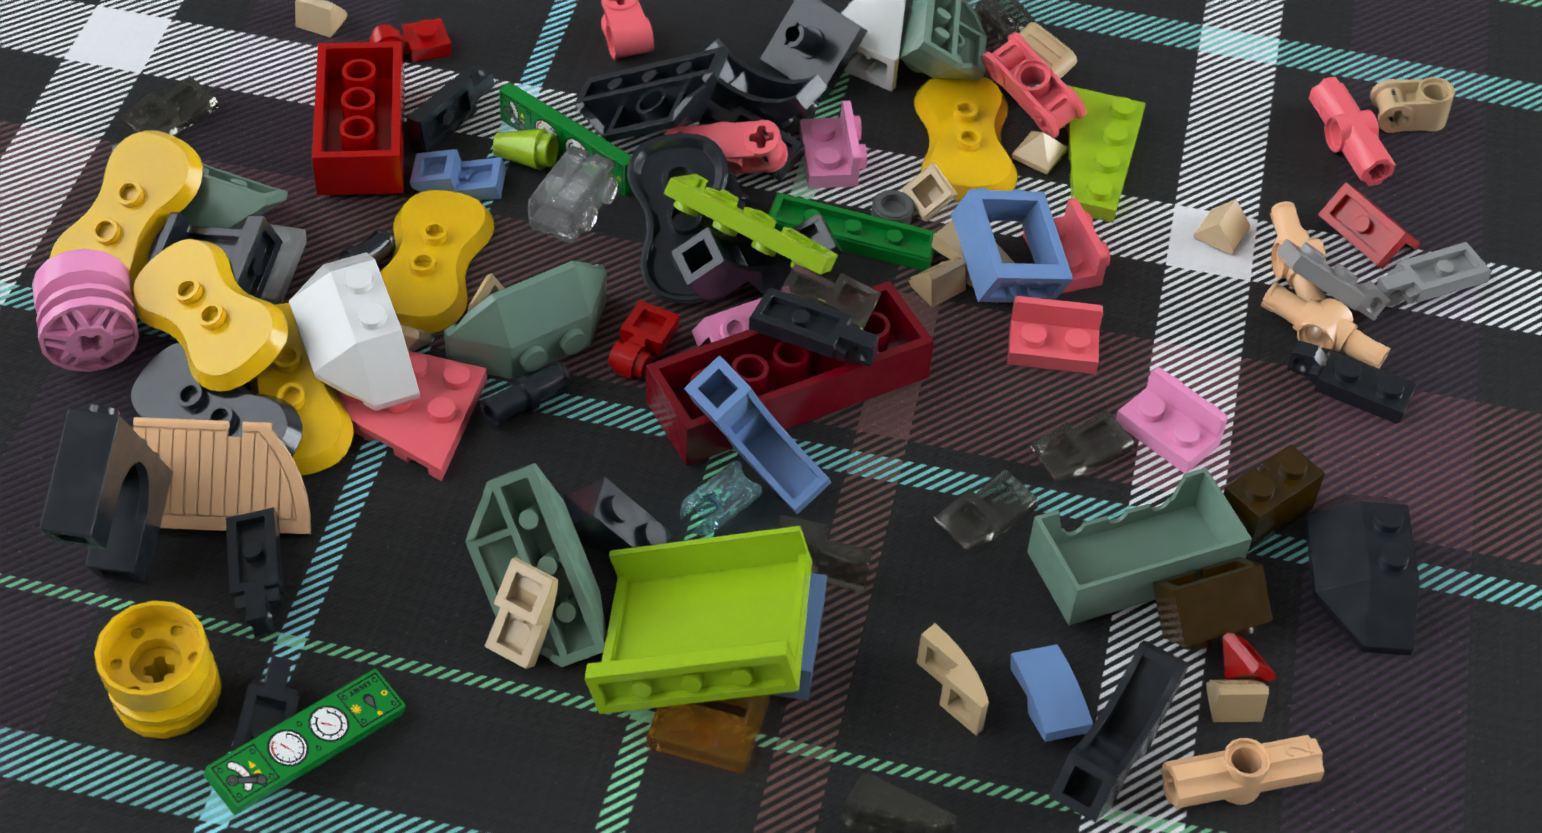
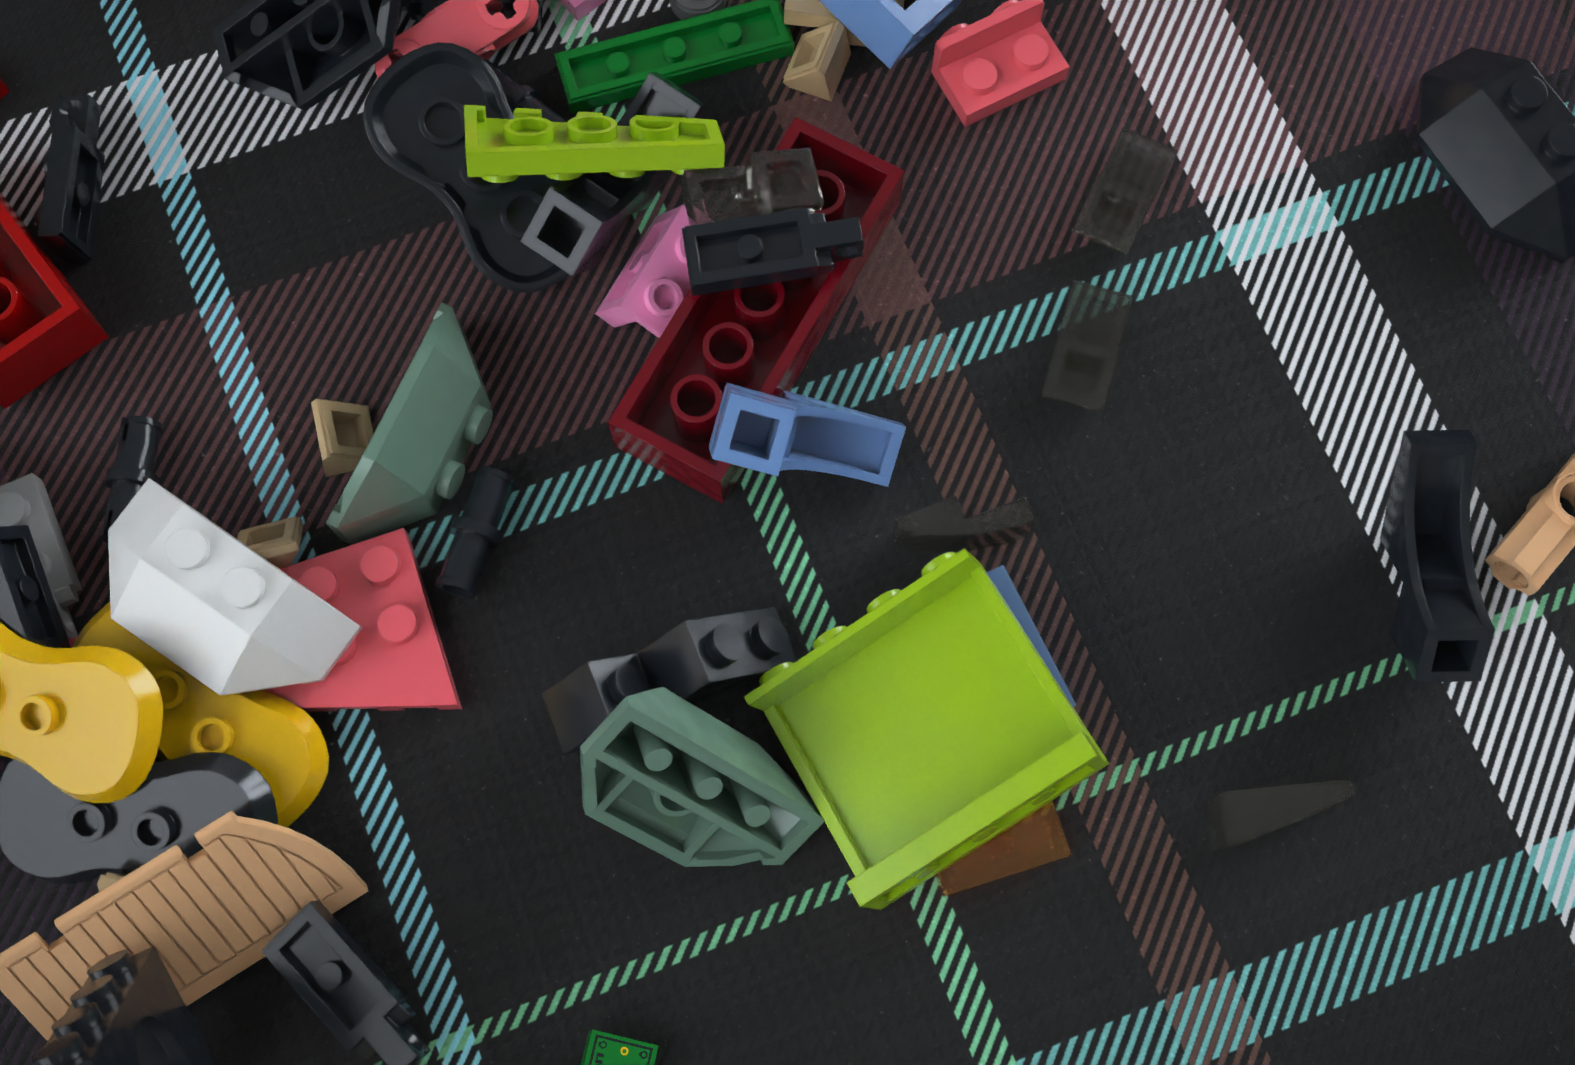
camera: 30 degrees left, 25 degrees up
(435, 243) = (203, 379): yellow plate -> none
(446, 172) = (151, 276): medium blue slope -> none
(524, 613) = (711, 853): tan slope -> none
(527, 147) = (213, 177): lime cone -> none
(528, 113) = (249, 134): green tile -> none
(572, 195) = (320, 213): clear brick -> none
(644, 330) = (550, 352): red plate -> none
(721, 498) = (799, 529): clear light blue piece -> none
(962, 688) = (1227, 599): tan slope -> none
(1052, 693) = (1315, 536): medium blue slope -> none
(1115, 561) = (1288, 294): sand green piece -> none
(1173, 421) = (1197, 94): bright pink bracket -> none
(1226, 600) = (1426, 301): dark brown piece -> none
(1237, 700) = (1491, 409): tan slope -> none
(1243, 661) = (1474, 362): red slope -> none
(1275, 494) = (1370, 147): dark brown piece -> none

